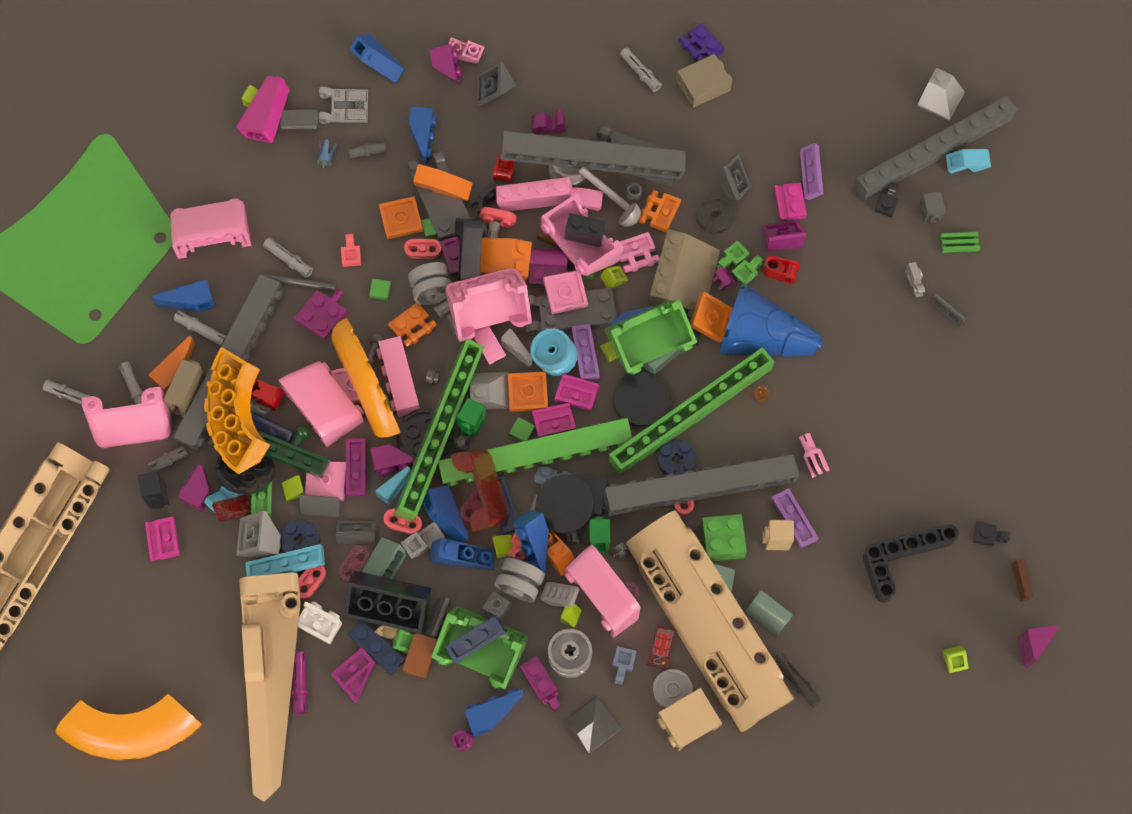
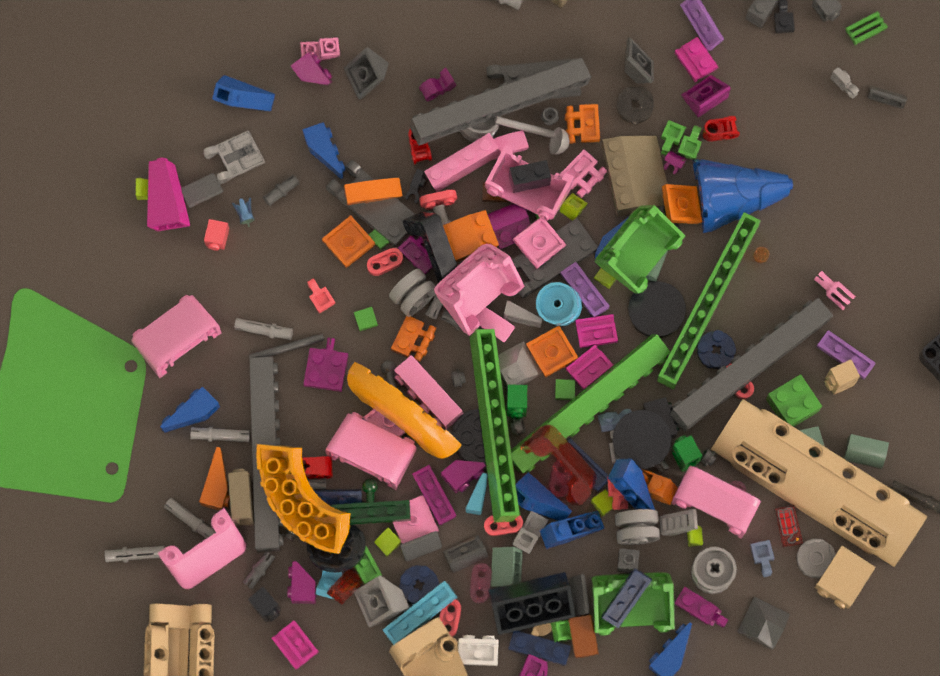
camera: 25 degrees left, 5 degrees up
(291, 161) = (216, 235): none -> coral brick

